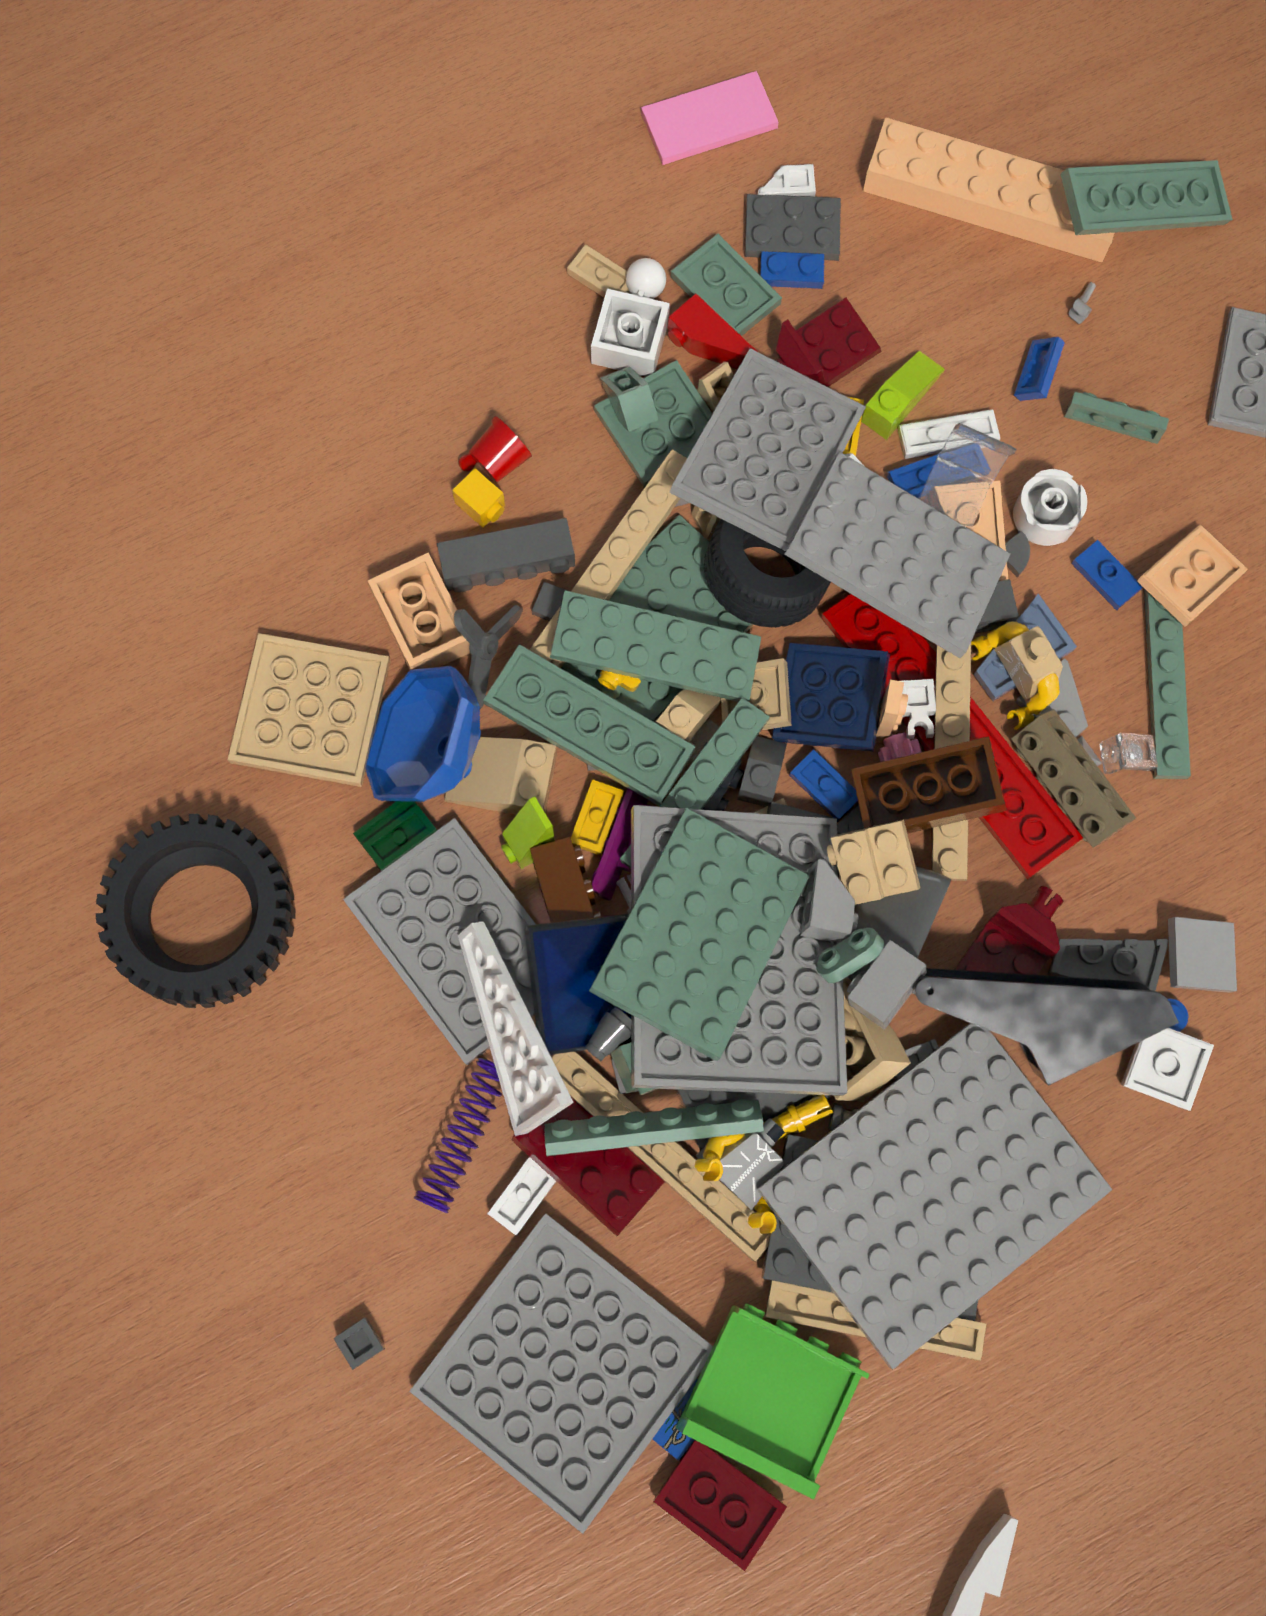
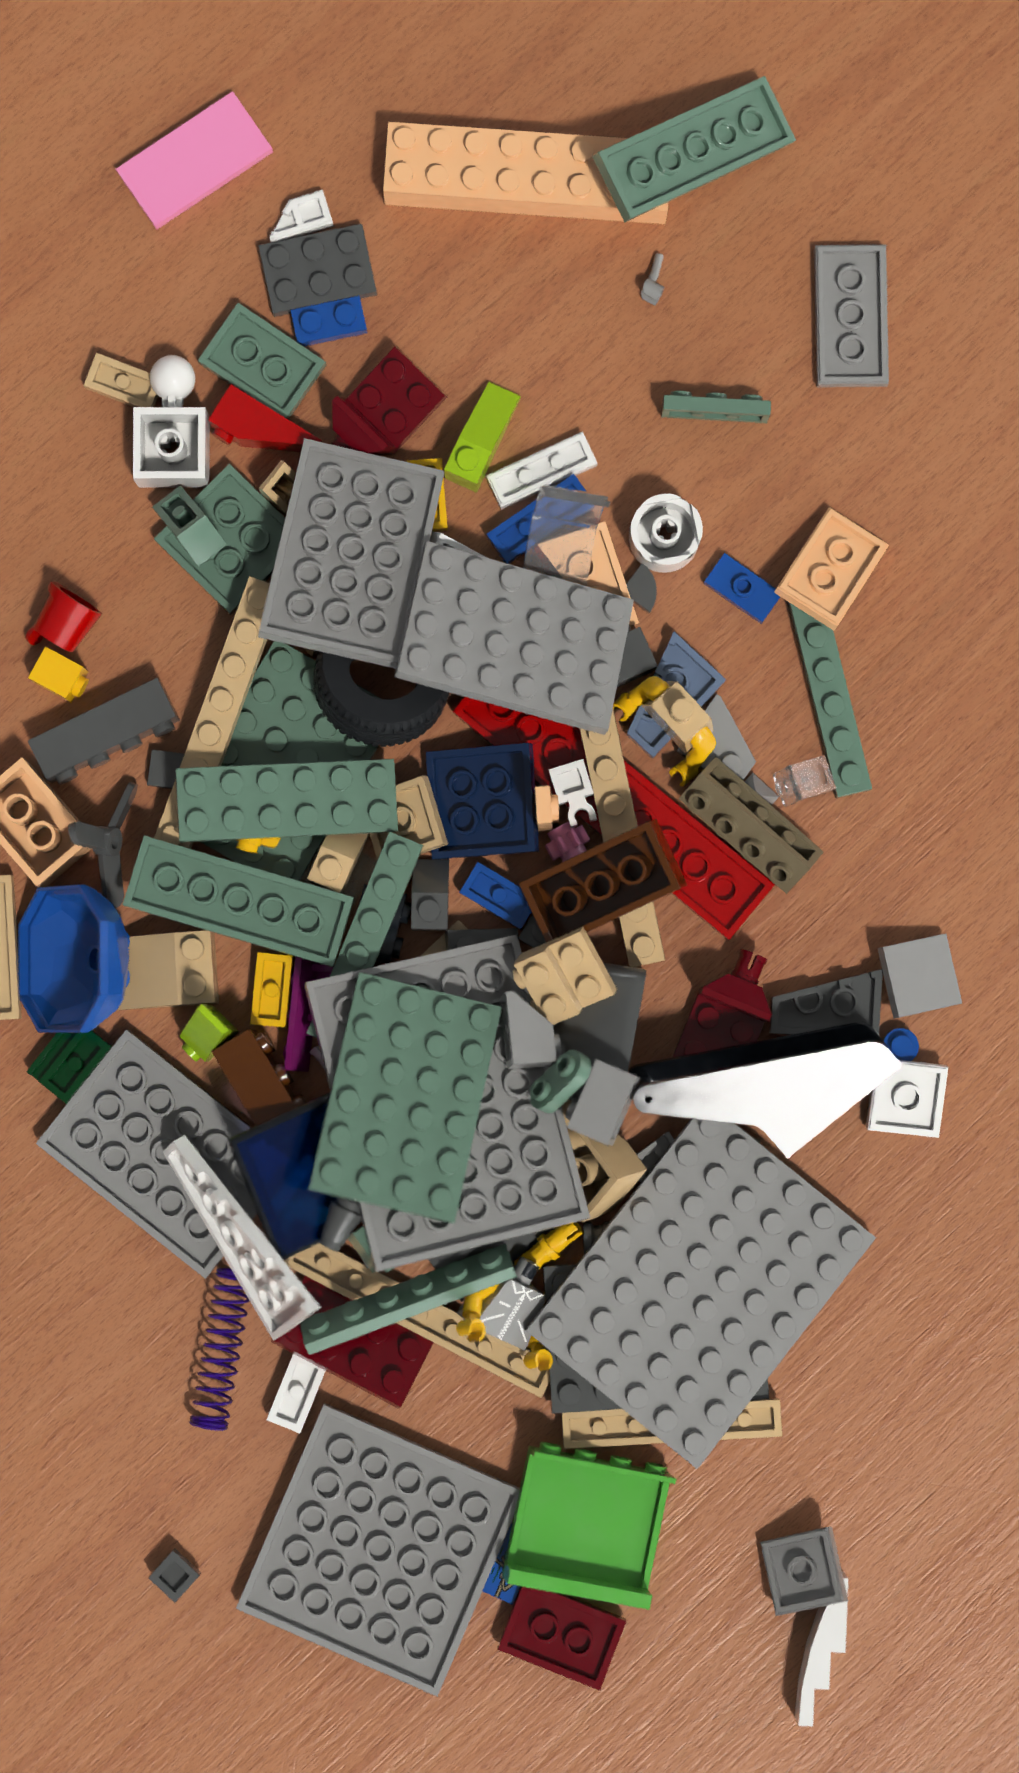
camera: 15 degrees left, 10 degrees up
(974, 1502) = (804, 1571): none -> light grey plate
(1039, 368) = (622, 372): blue plate -> none

